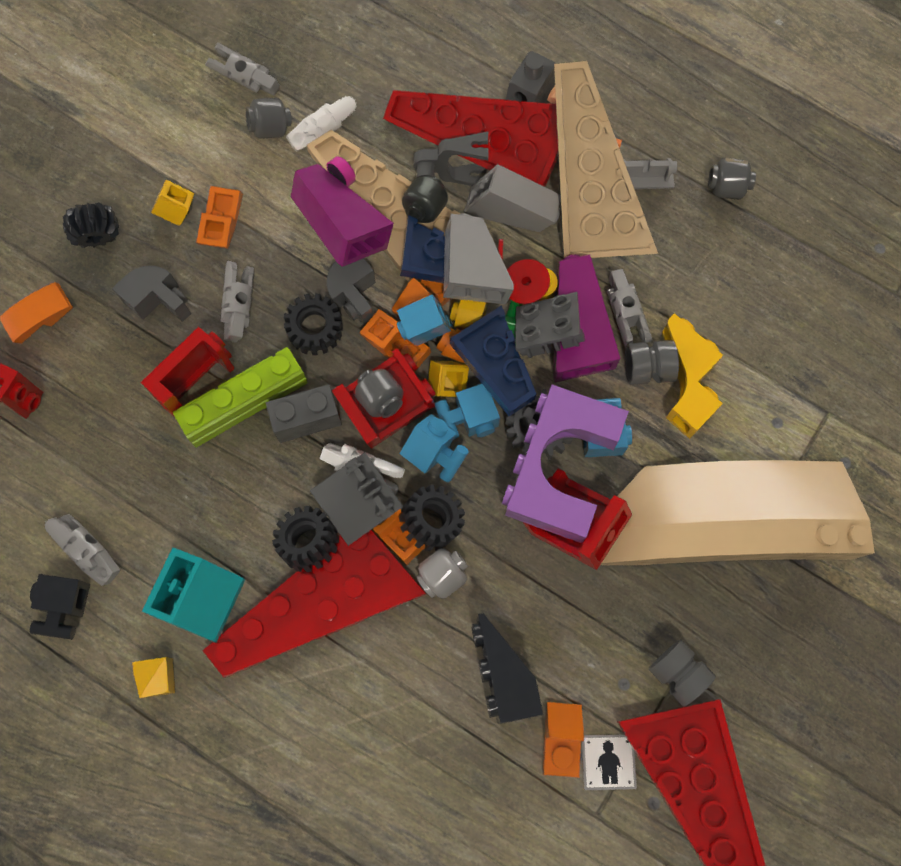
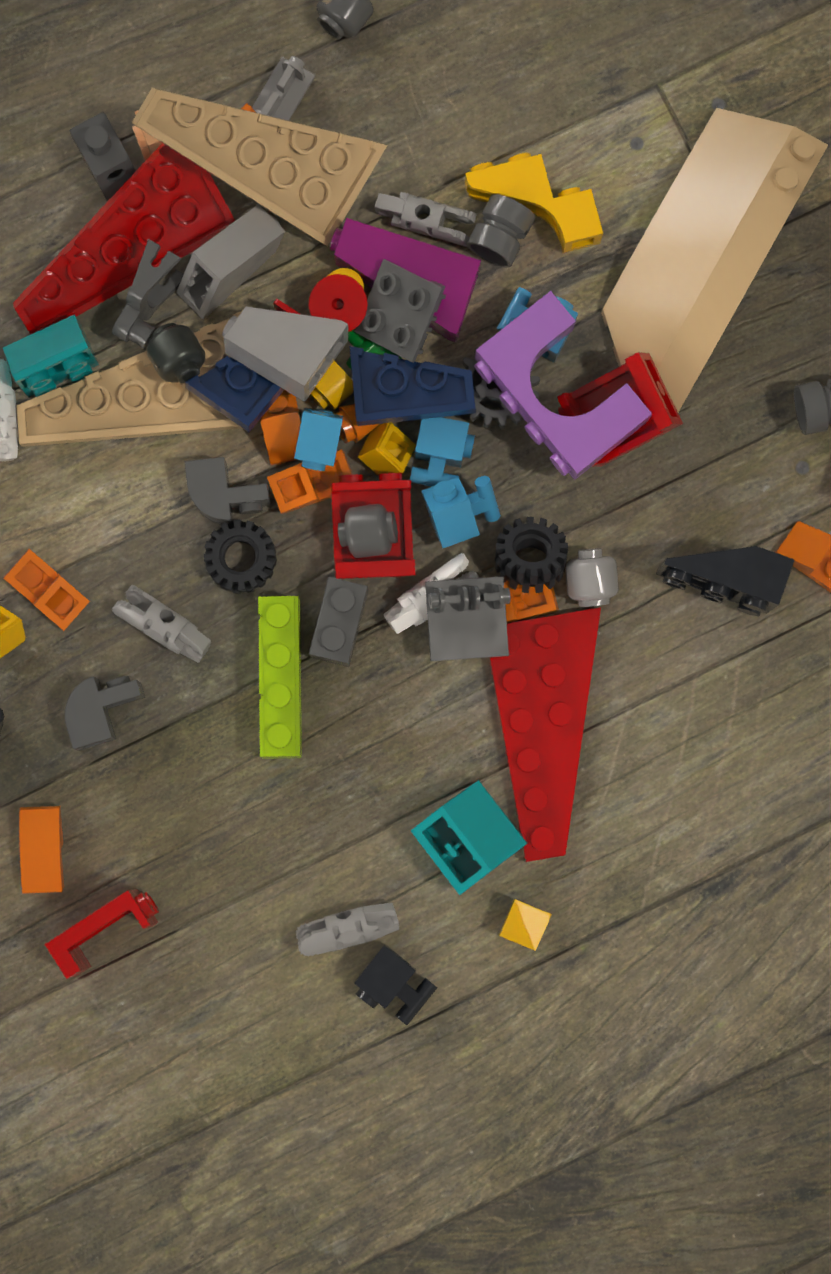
camera: 60 degrees left, 10 degrees up
(185, 367) = (225, 753): red panel -> none
(313, 552) = (454, 700): black tyre -> none
(340, 216) = (136, 457): magenta slope -> none
(341, 170) = (85, 424): dark pink tile -> none
(375, 130) = (51, 357): none -> teal slope

